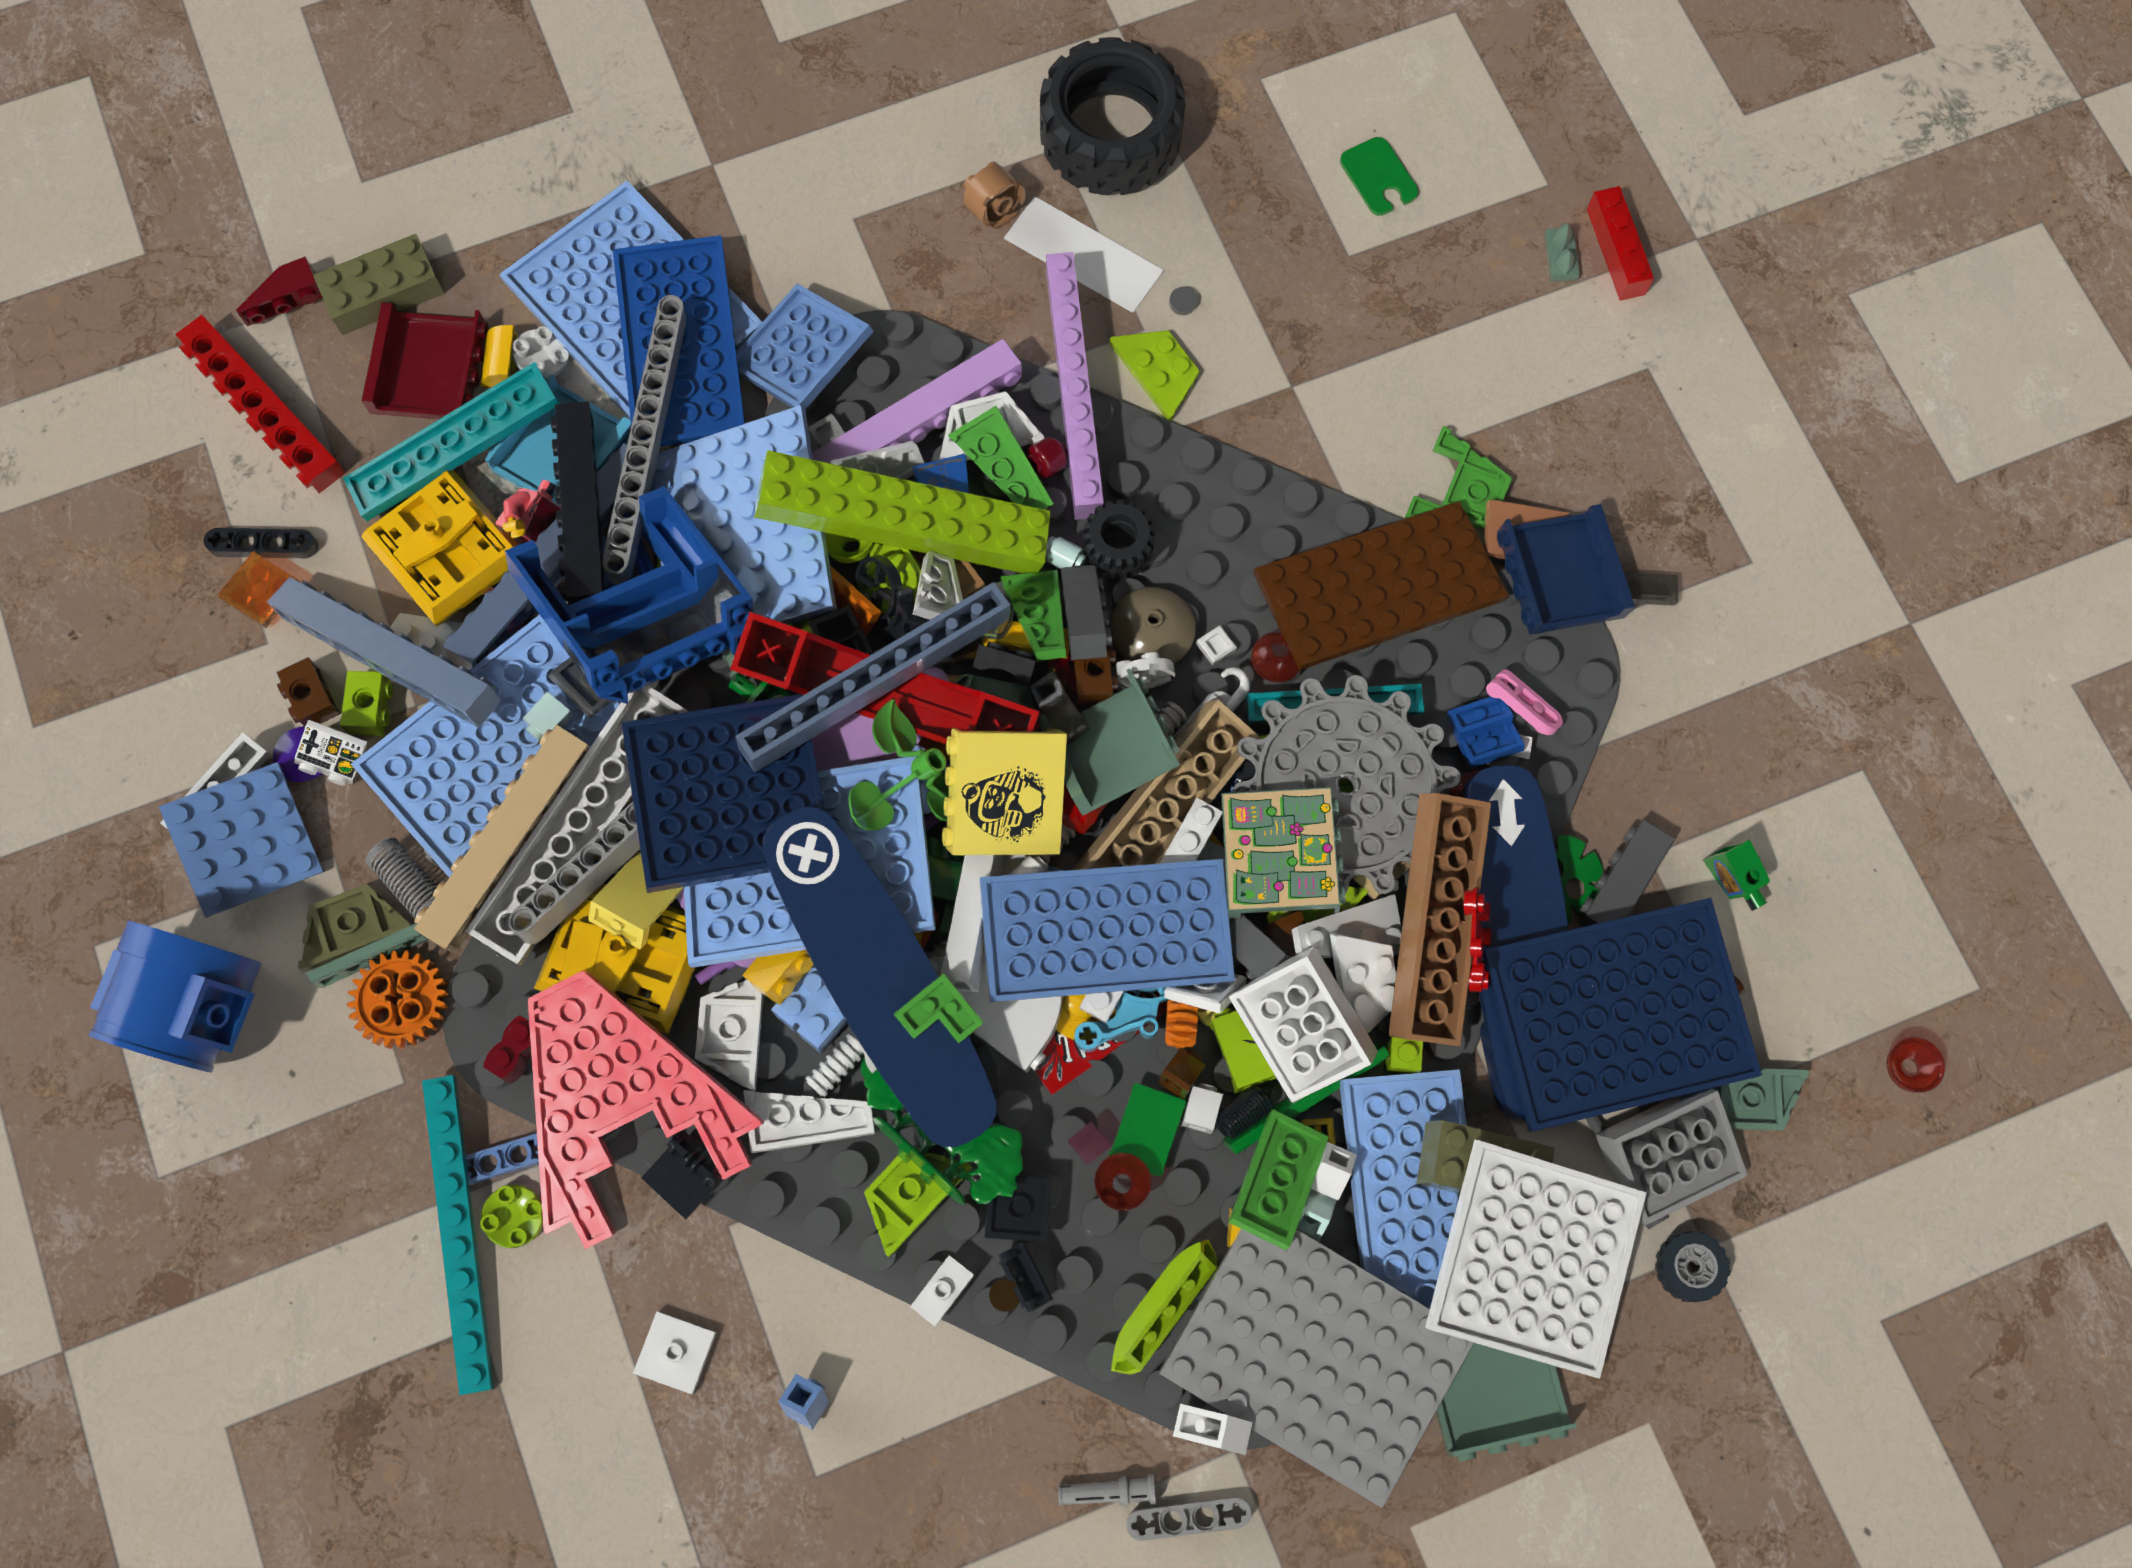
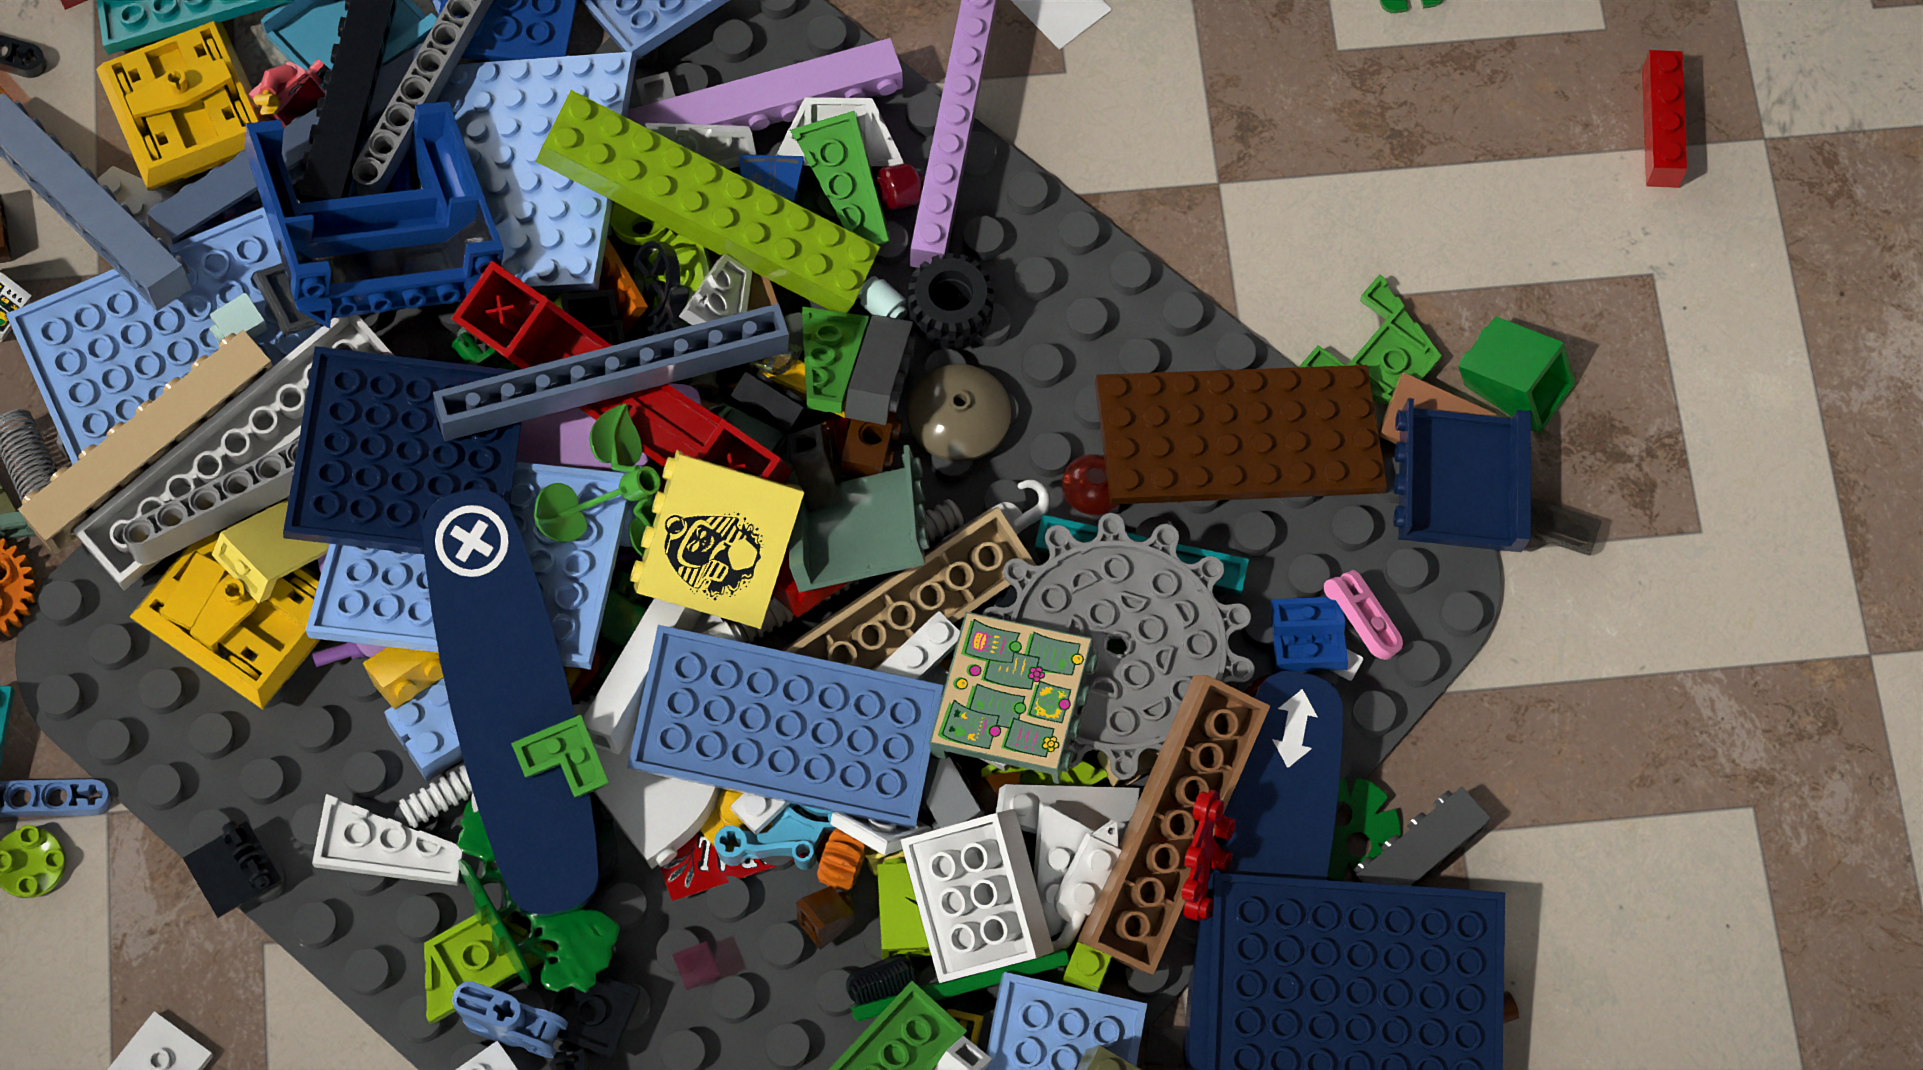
camera: 15 degrees right, 5 degrees down
(359, 689) = (41, 238): lime brick -> none
(510, 1056) = (94, 673): dark red brick -> none
(599, 1070) = (172, 726): coral wing -> none
(731, 1032) = (333, 728): white wing -> none
(936, 1235) = (506, 1020): none -> medium blue piece
(1126, 1165) = (714, 998): clear red piece -> none
(1149, 1126) = (767, 970): green piece -> none
(1151, 668) = (936, 456): white plate -> none
(1158, 367) = (1068, 119): lime wing -> none
(1182, 301) = (1122, 51): dark grey tile -> none
(1202, 1108) = (835, 962): white brick -> none
(1216, 645) = (1026, 452): white tile -> none
(1383, 984) = (1085, 880): none -> white plate
(1561, 253) = (1592, 113): sand green tile -> none
(1574, 472) = (1518, 371): none -> green slope
(1739, 872) = (1552, 866): green torso -> none

